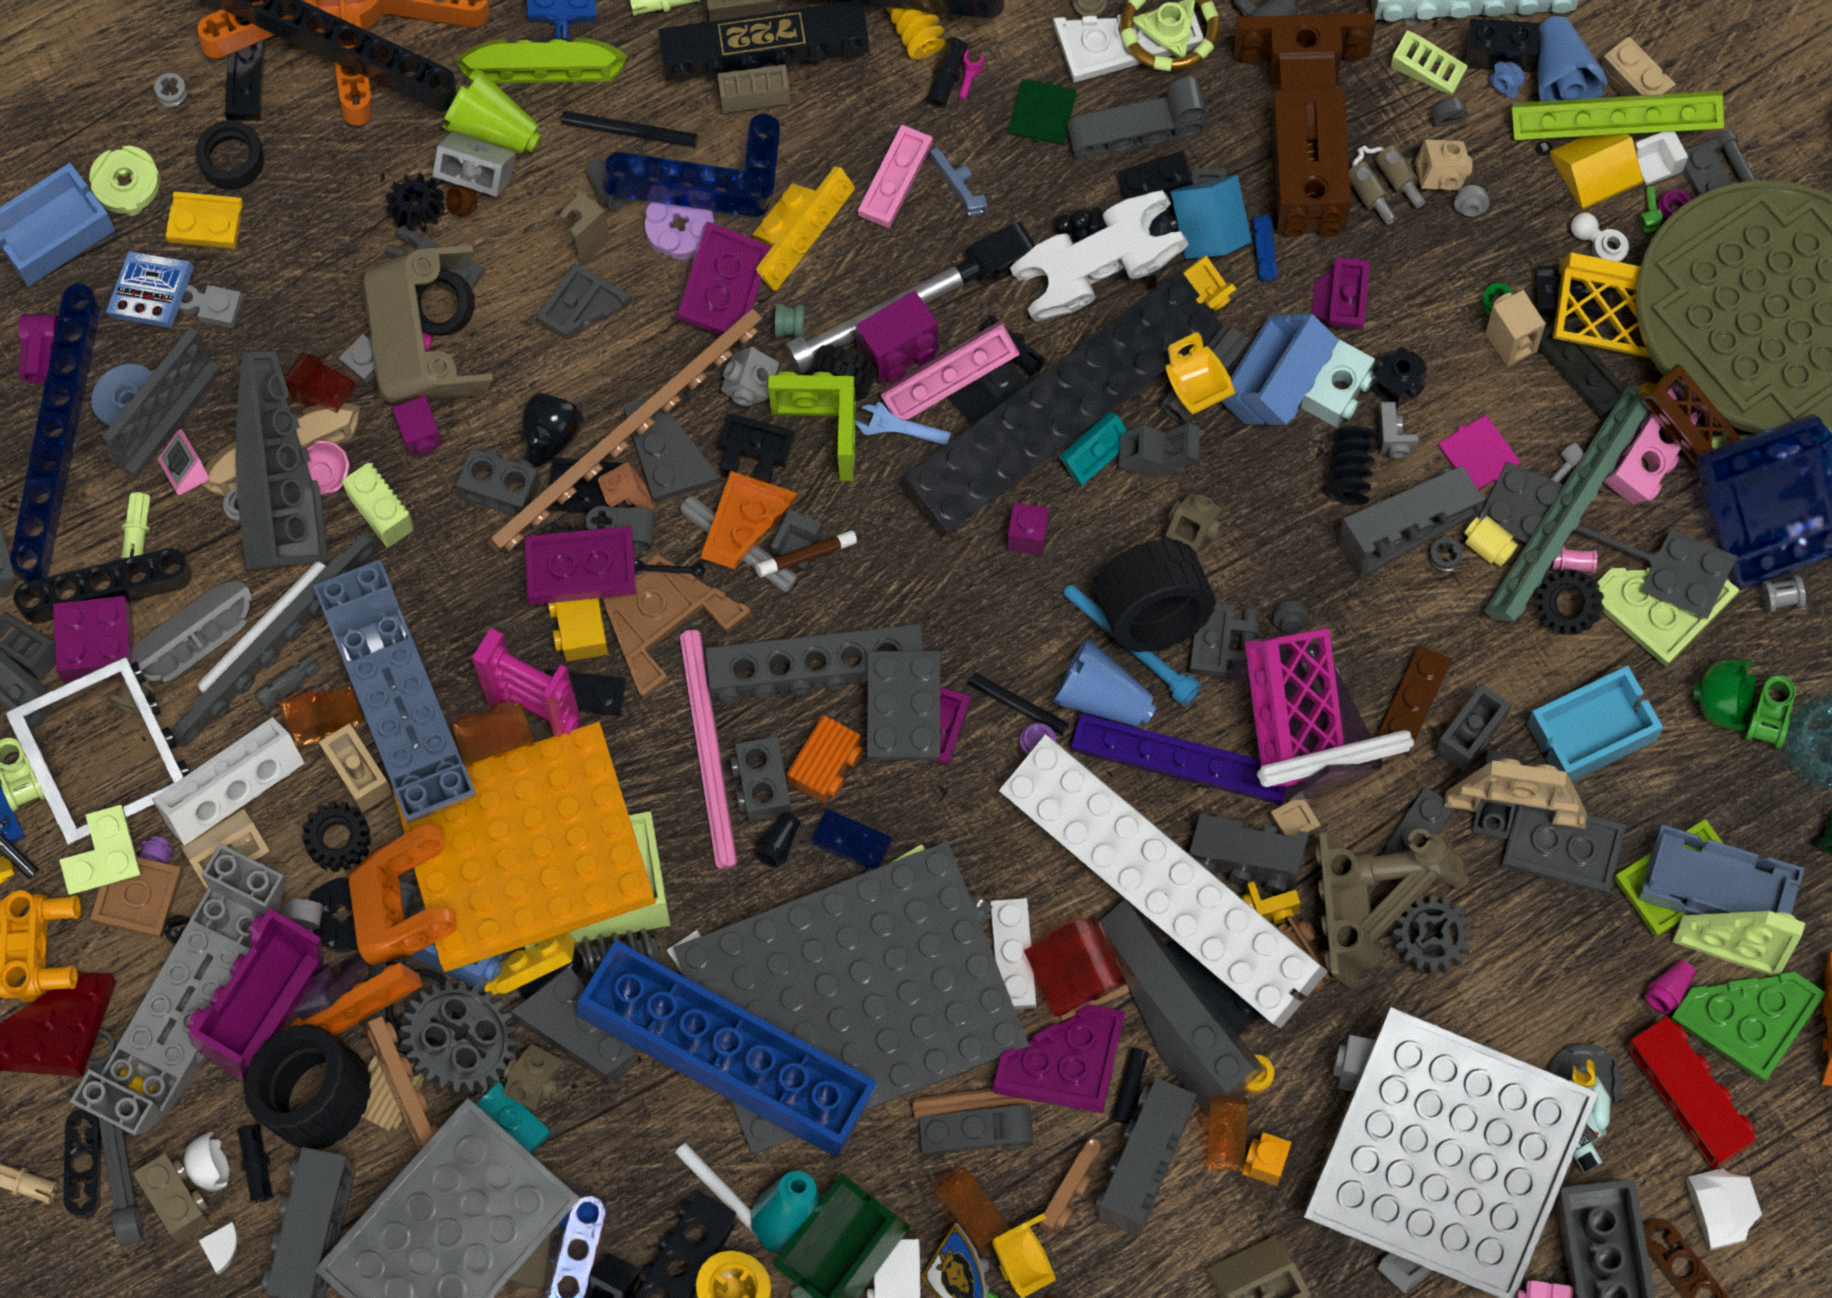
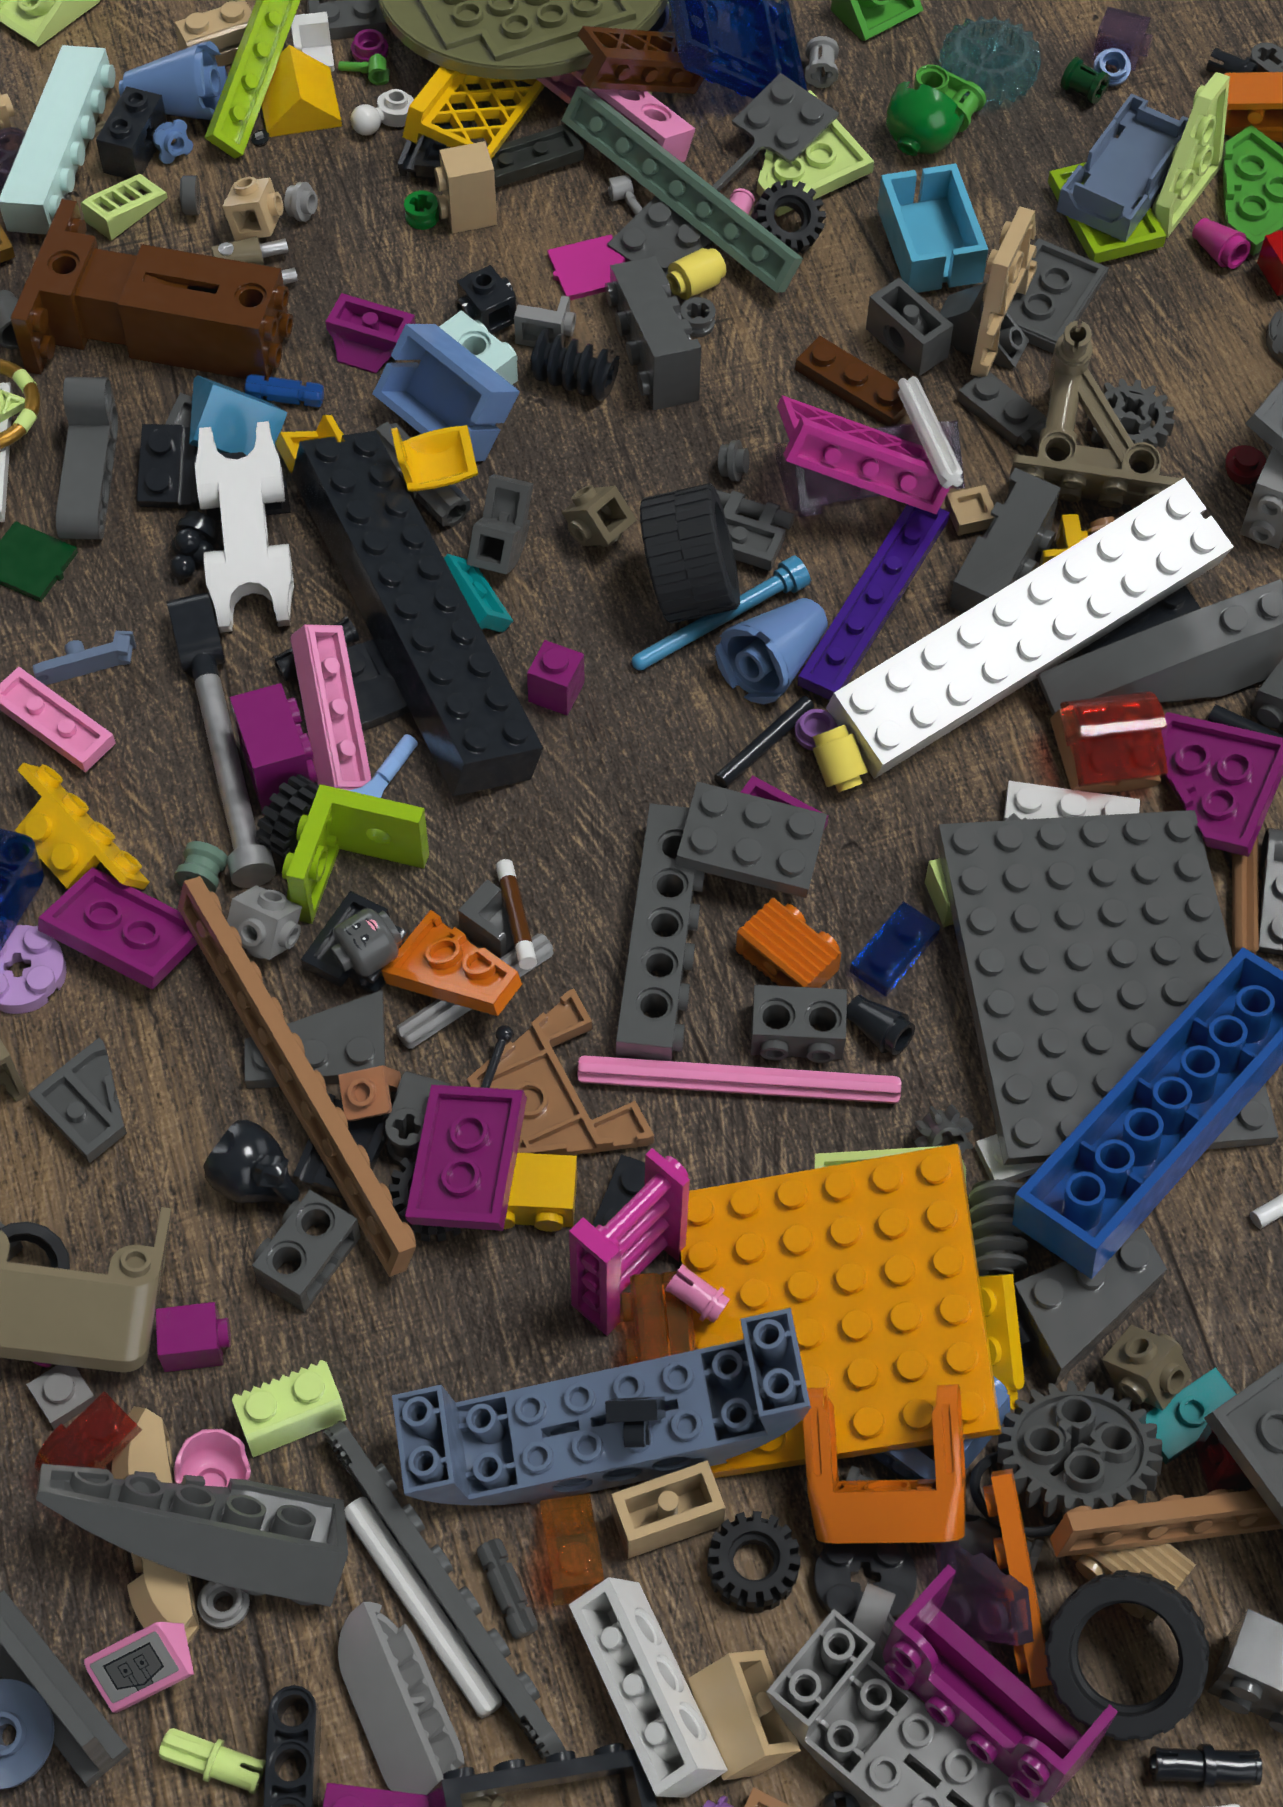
camera: 80 degrees left, 10 degrees down
(393, 717) = (636, 1415): none -> black tile
(511, 748) = (697, 1294): none -> bright pink pin
(691, 902) = (943, 1121): none -> dark grey gear
(741, 450) = (366, 942): none -> dark grey head
(1005, 759) = (839, 758): none -> light yellow brick

